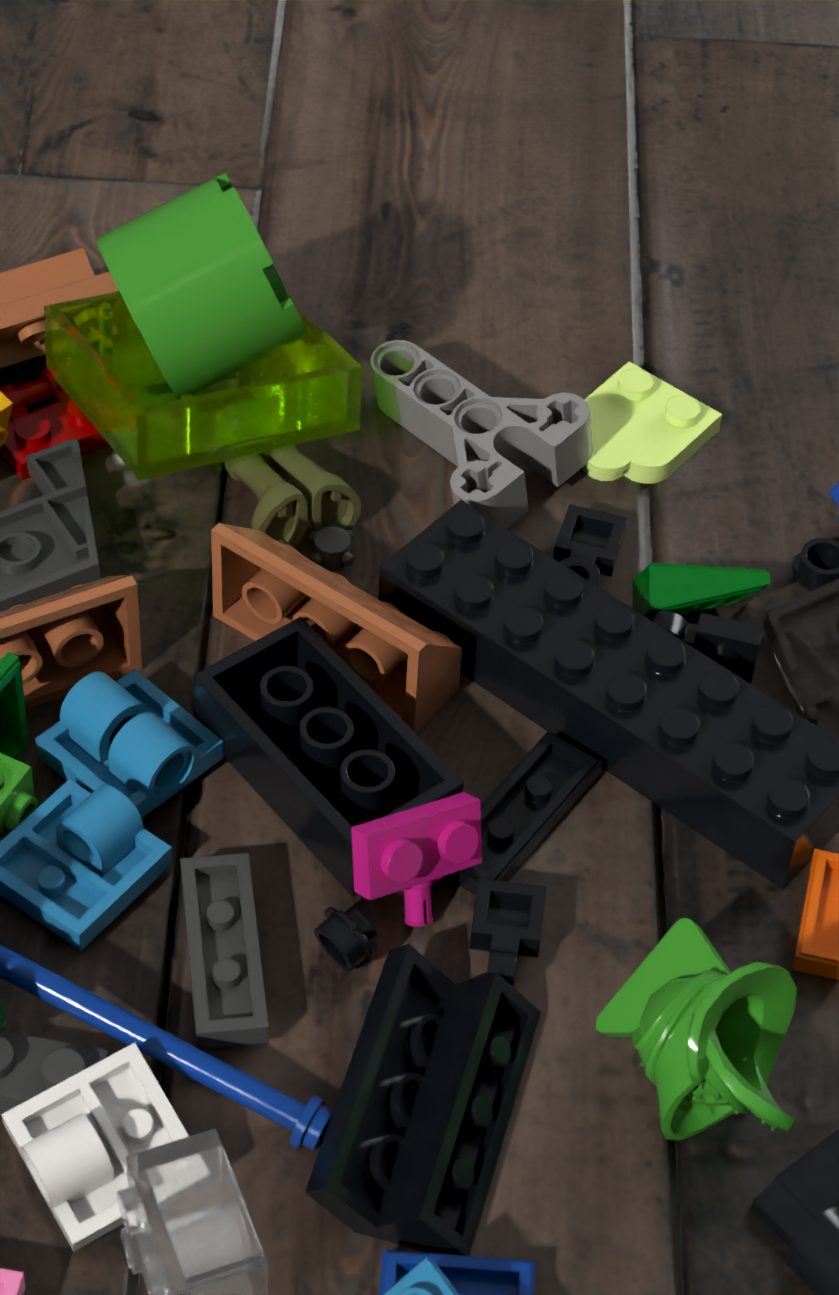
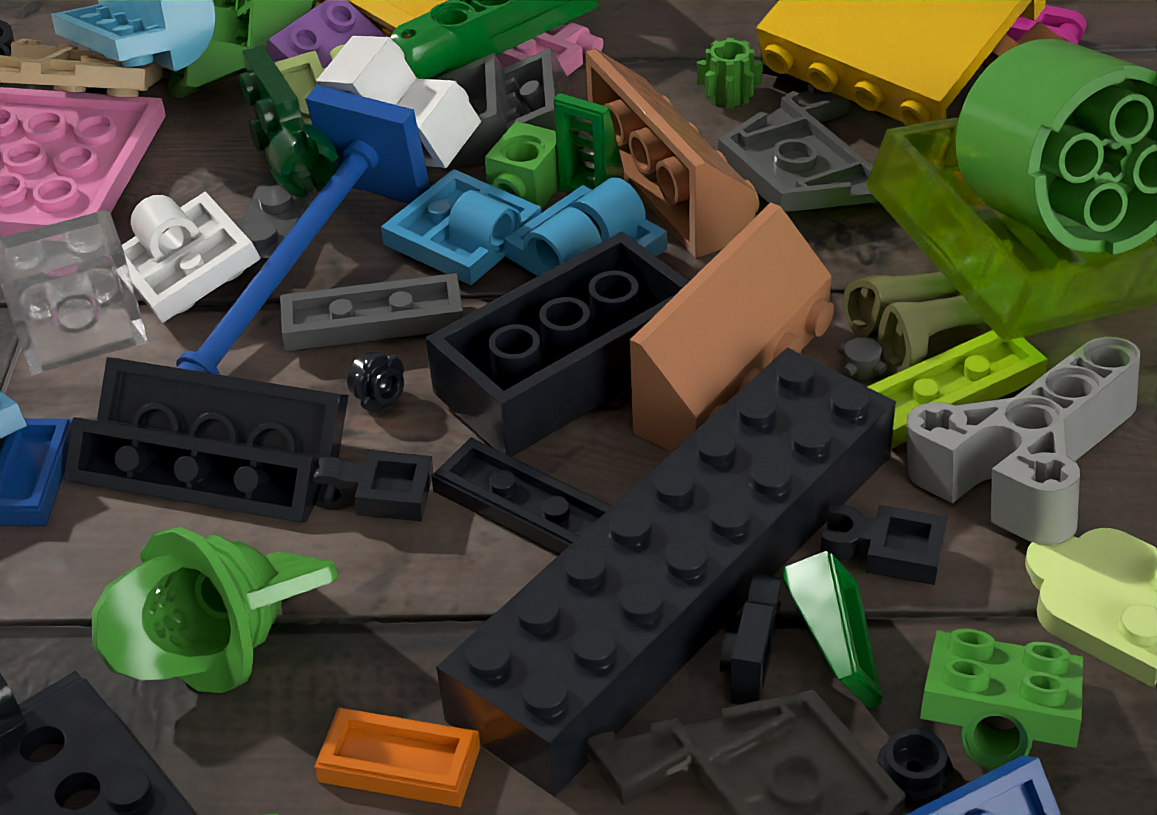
camera: 95 degrees right, 5 degrees down
(383, 480) = (962, 375): none -> lime plate
(416, 850) = (440, 391): dark pink plate -> none
(760, 497) = (1027, 684): none -> bright green plate

